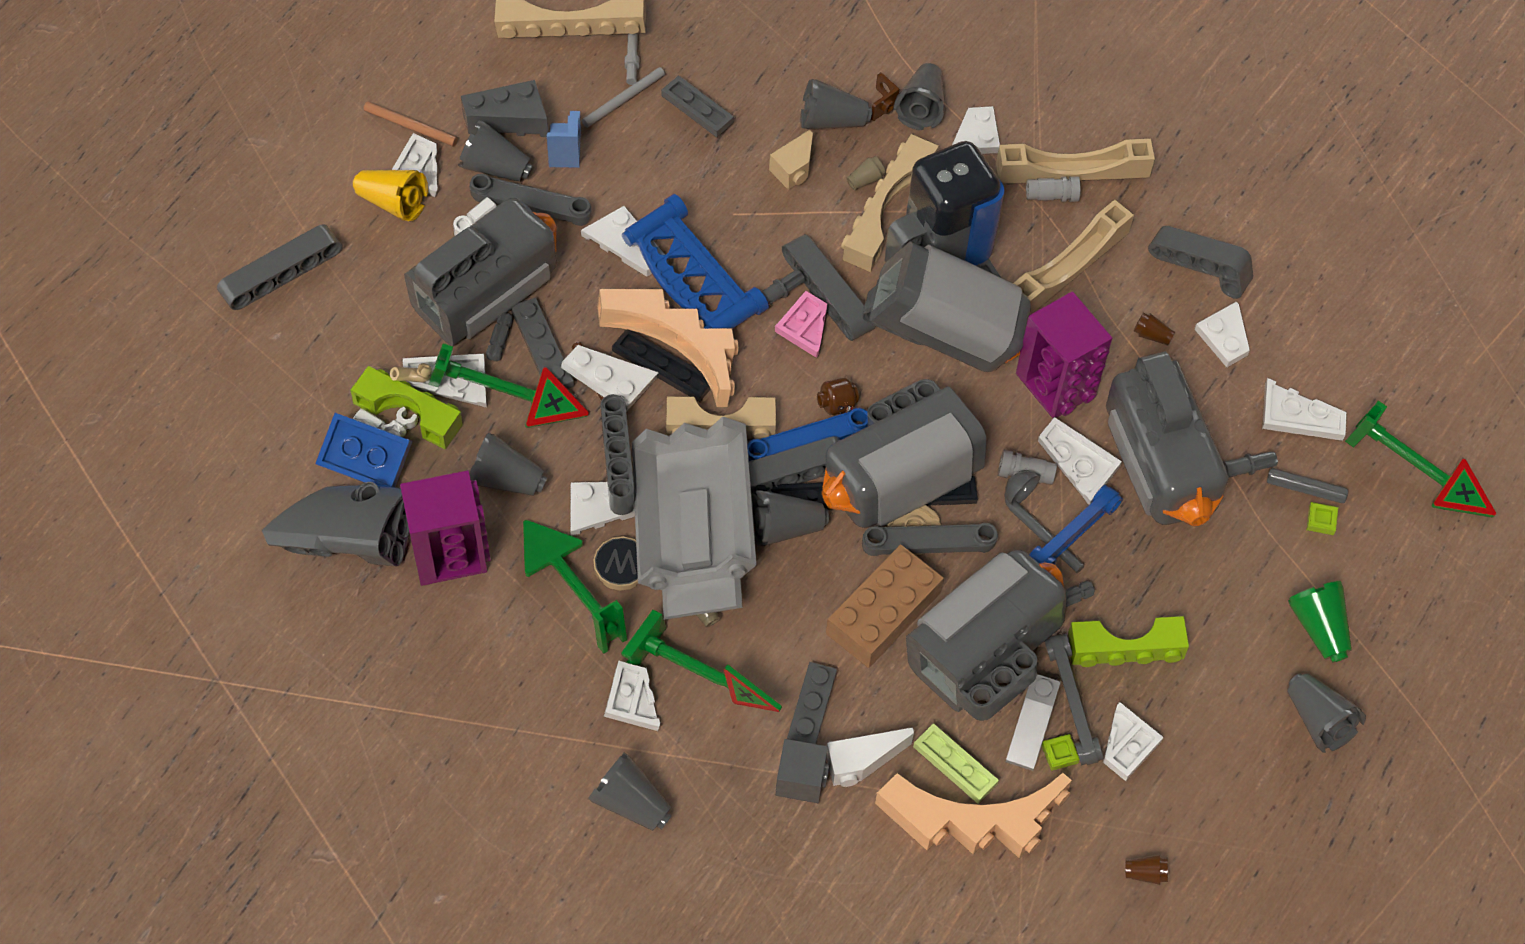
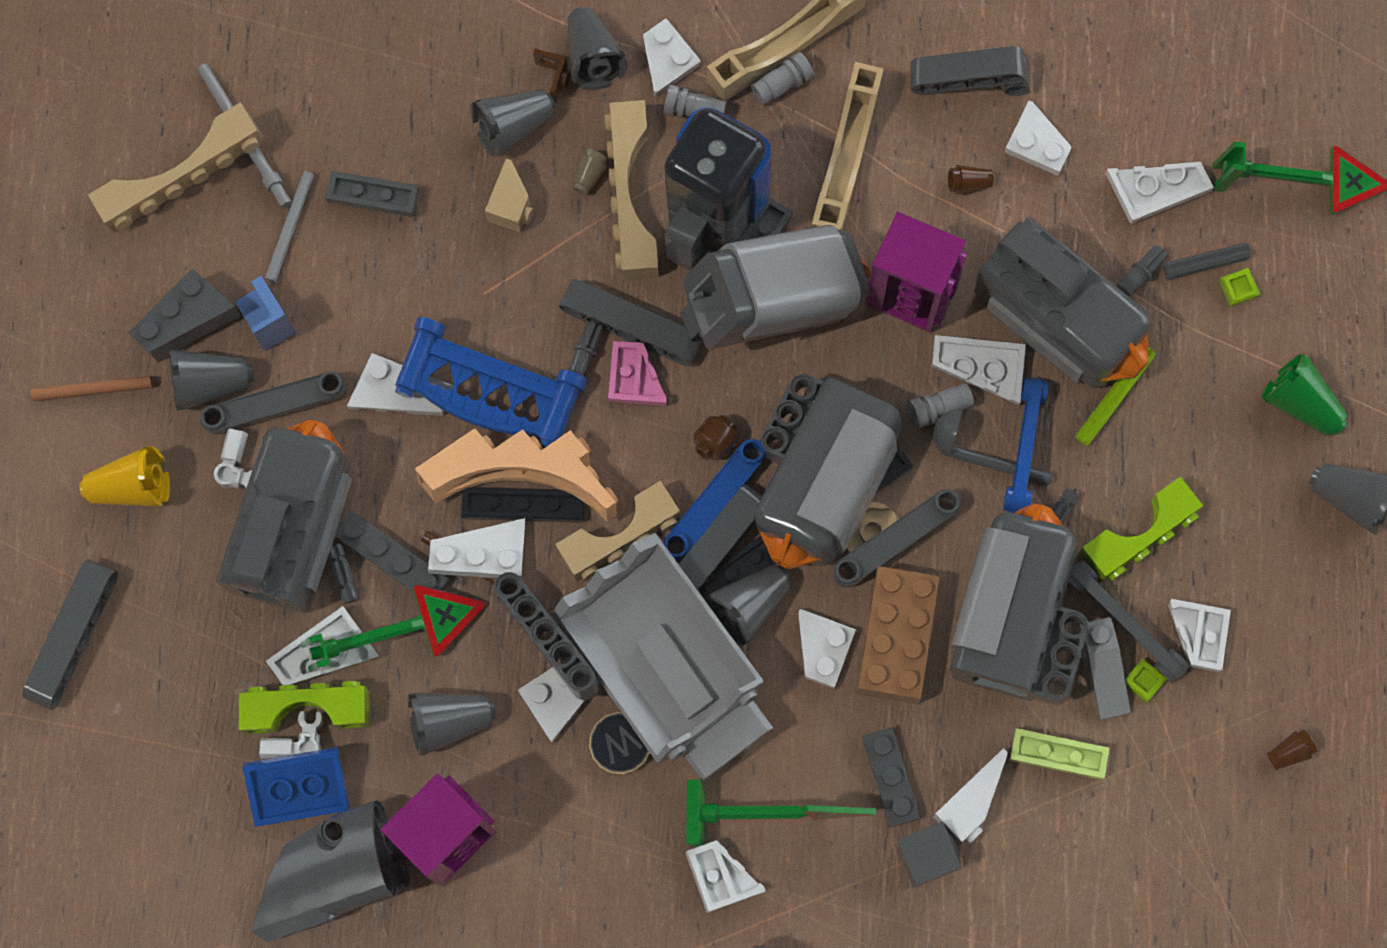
camera: 25 degrees left, 15 degrees up
(418, 374) = (287, 674): tan arm -> none
(420, 156) = (132, 429): white wing -> none
(548, 547) = (539, 774): green piece -> none
(822, 586) = (823, 647): none -> white wing
(974, 826) = (1148, 782): light nougat arch -> none
(1169, 539) = (1108, 405): none -> lime axle

